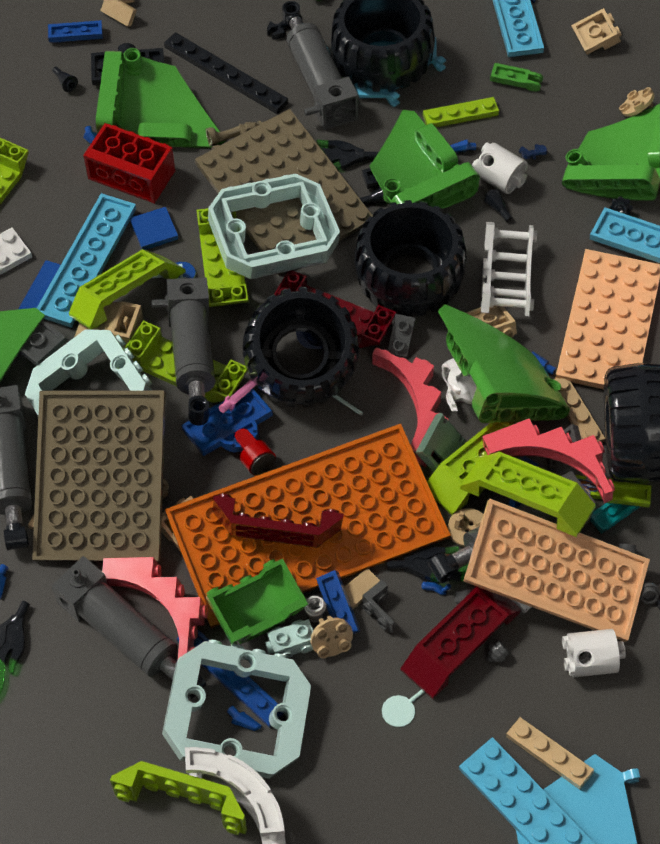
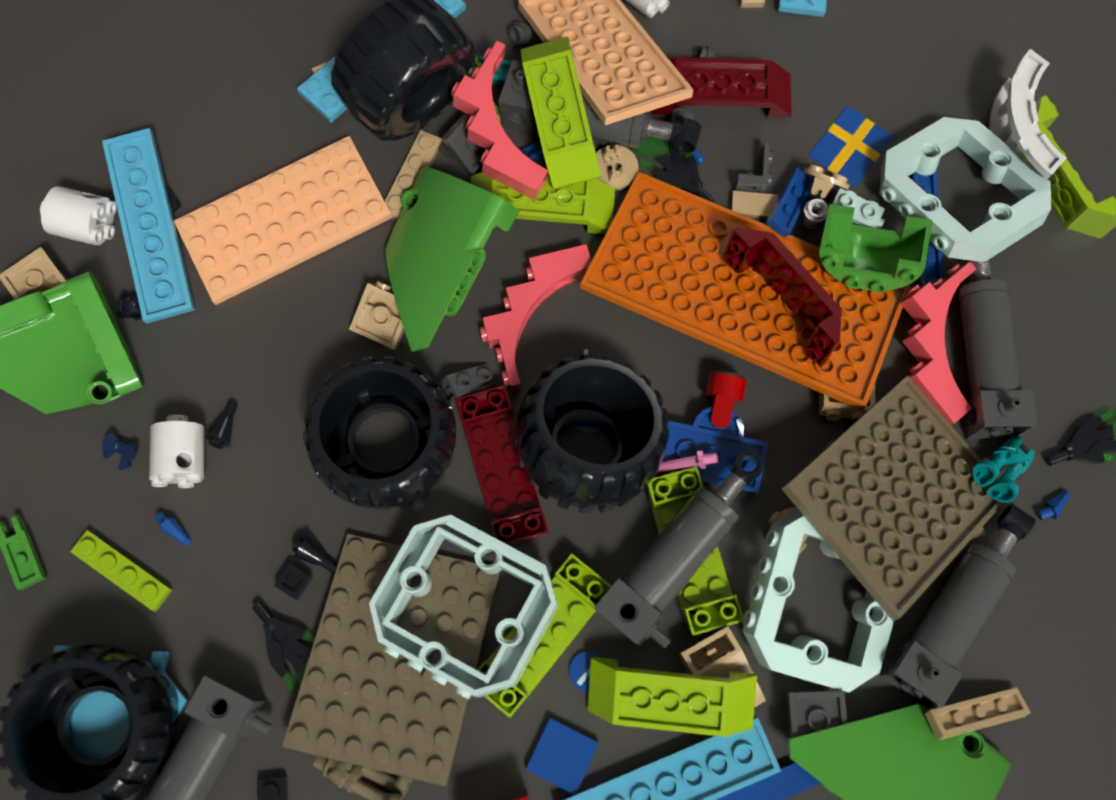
camera: 135 degrees left, 15 degrees up
(44, 574) = (1008, 457): none -> teal piece
(242, 719) = (952, 196): blue bar -> none
(342, 693) = (851, 146): none -> blue sticker
(399, 710) = (820, 94): light aqua piece -> none
(422, 166) = (241, 543): bright green panel -> none
(441, 439) = (563, 243): sand green container -> none
(460, 387) = (486, 282): white hair -> none
(488, 274) = (324, 363): white fence -> none
(549, 368) = (383, 240): blue bar -> none

